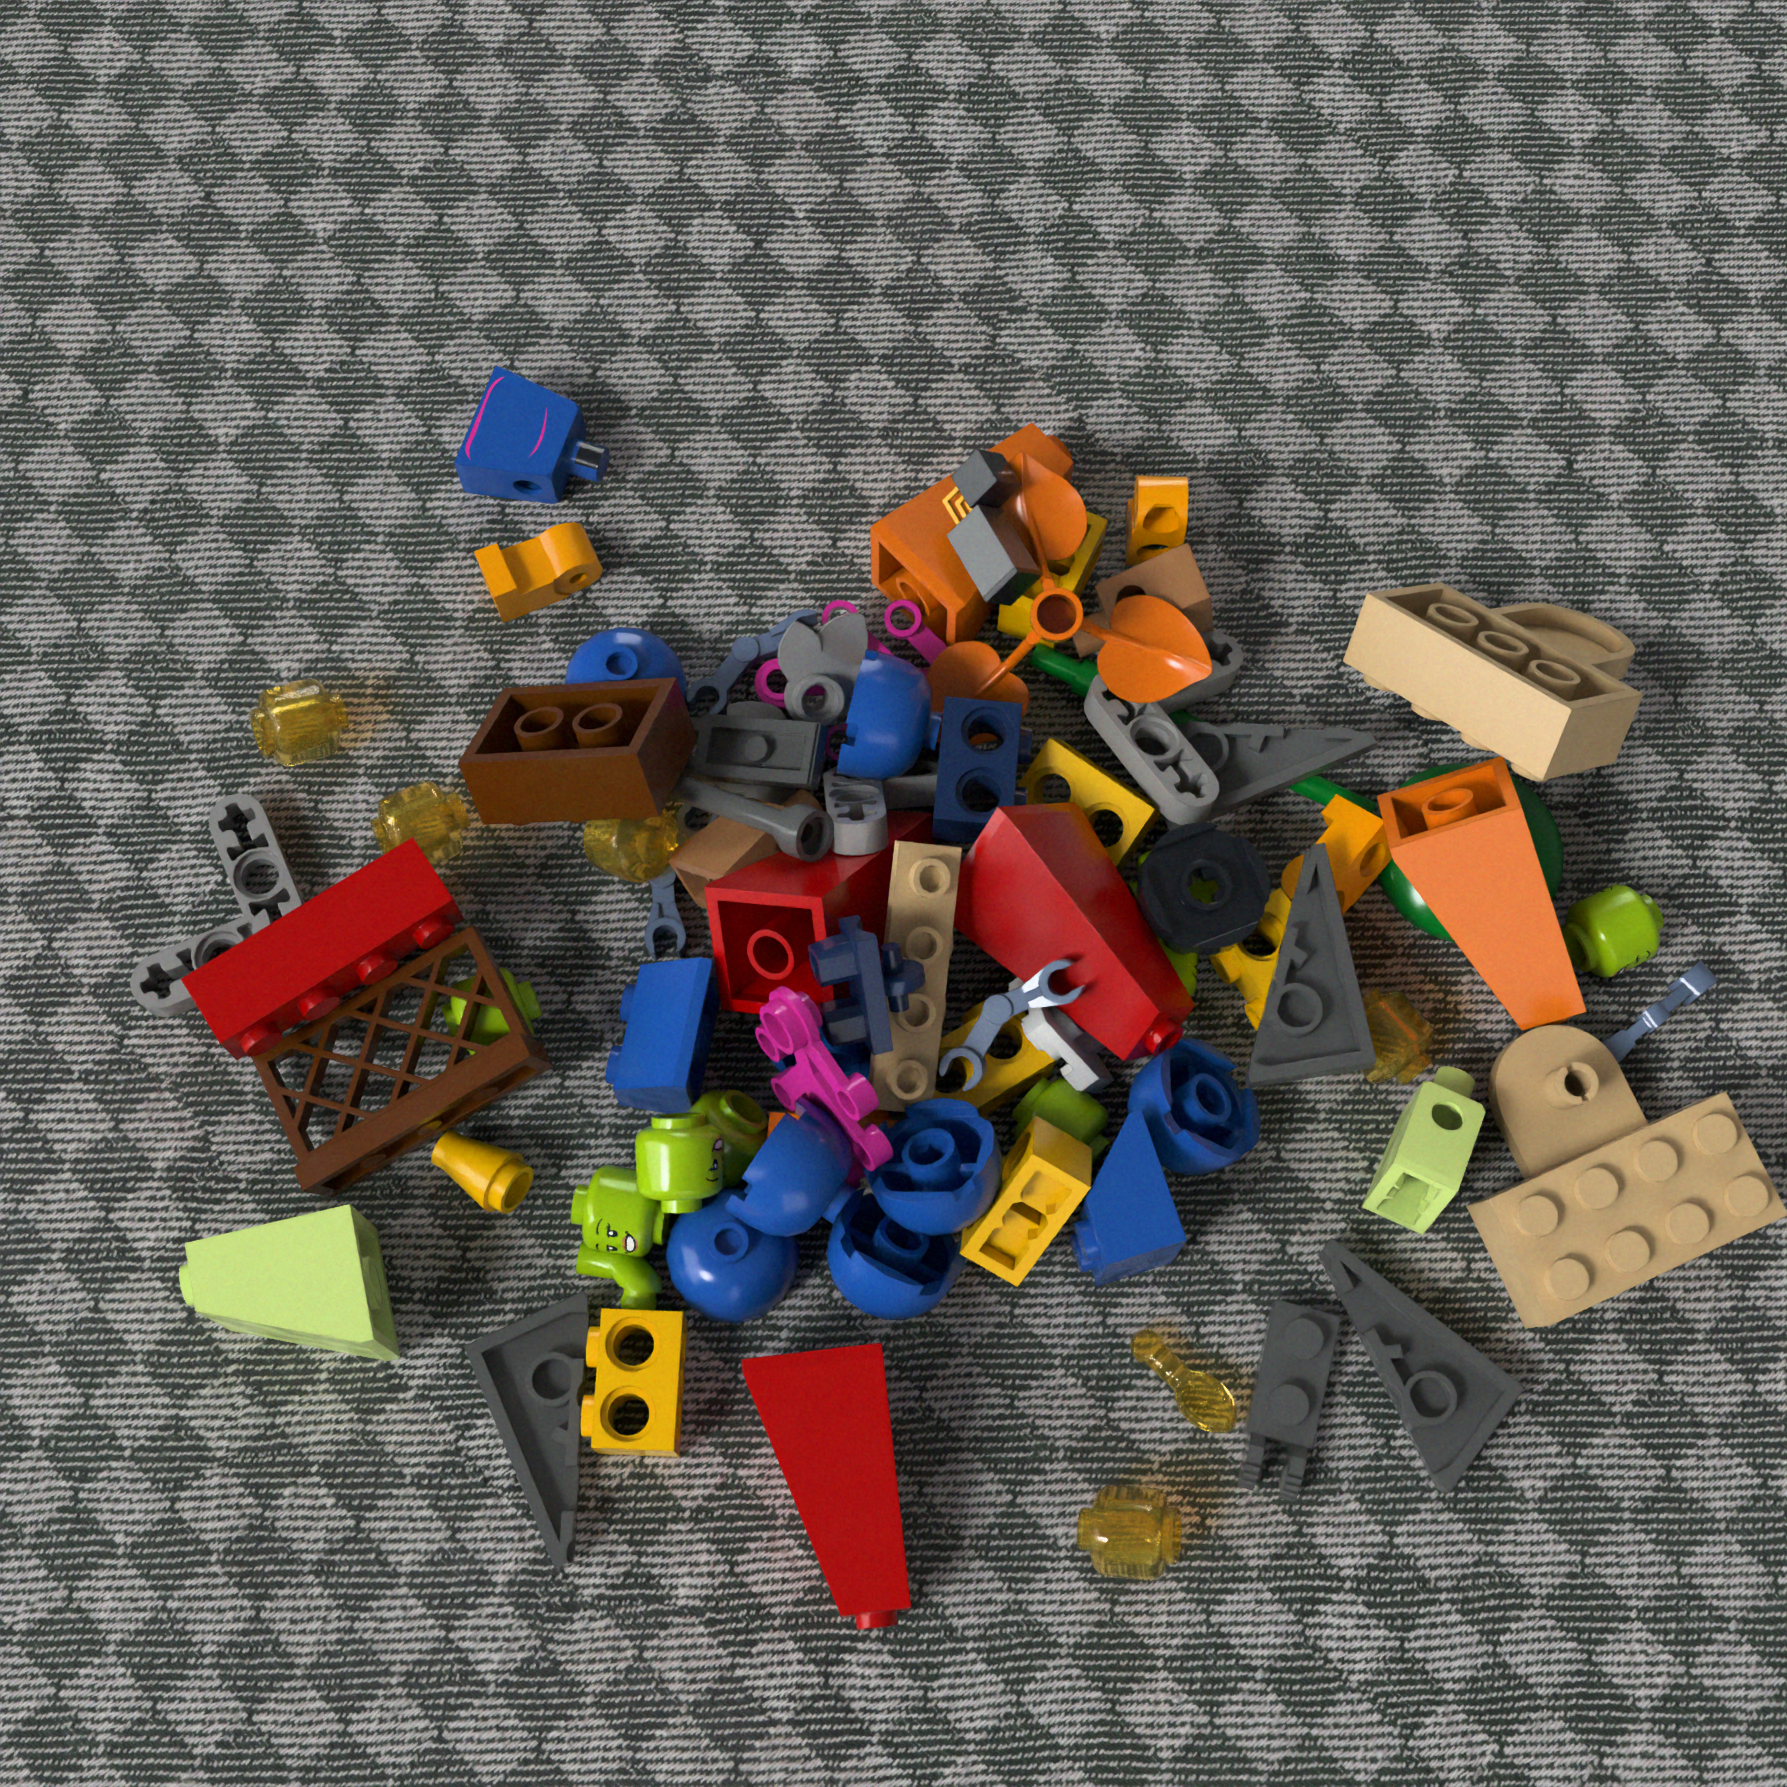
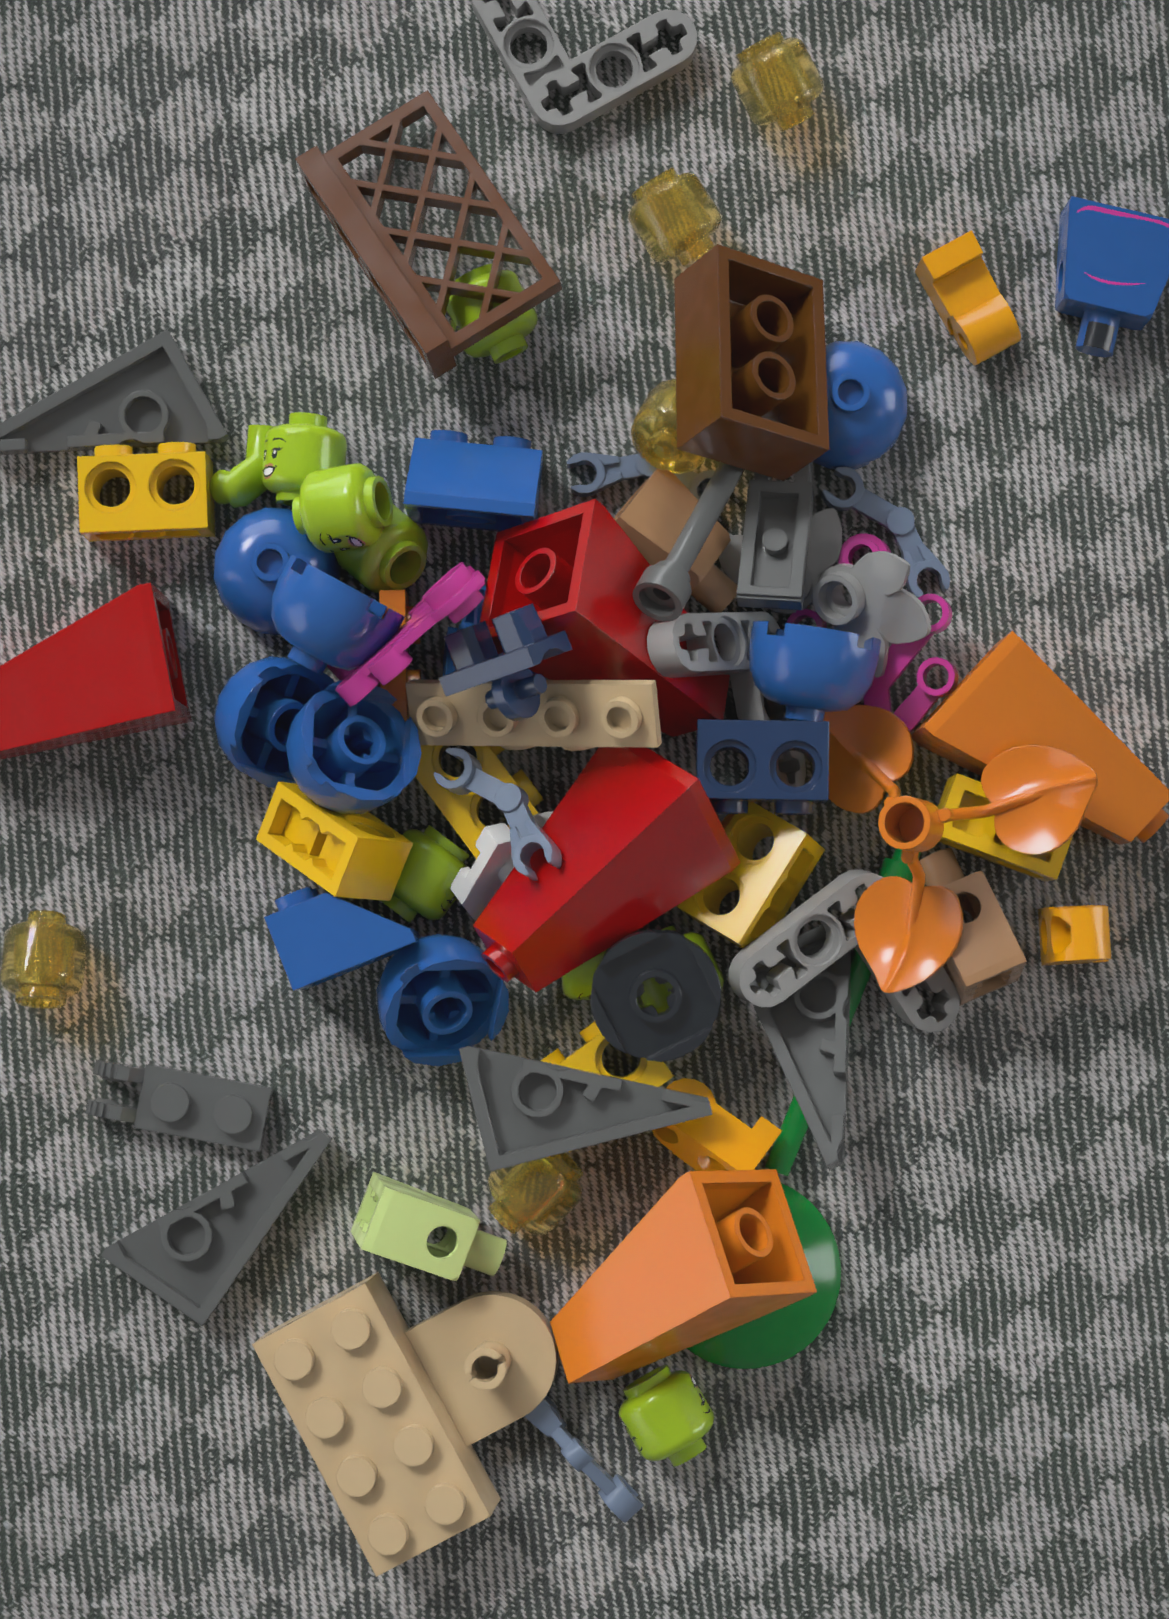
camera: 85 degrees right, 15 degrees up
(297, 1282) = (201, 171): yellowish green slope -> none
(323, 951) = (524, 145): red slope -> none
(484, 1171) = (335, 328): yellow cone -> none
(985, 534) = (1003, 751): piece -> none
(1197, 1394) = (178, 1018): clear yellow piece -> none
(1510, 678) = (913, 1298): tan brick -> none

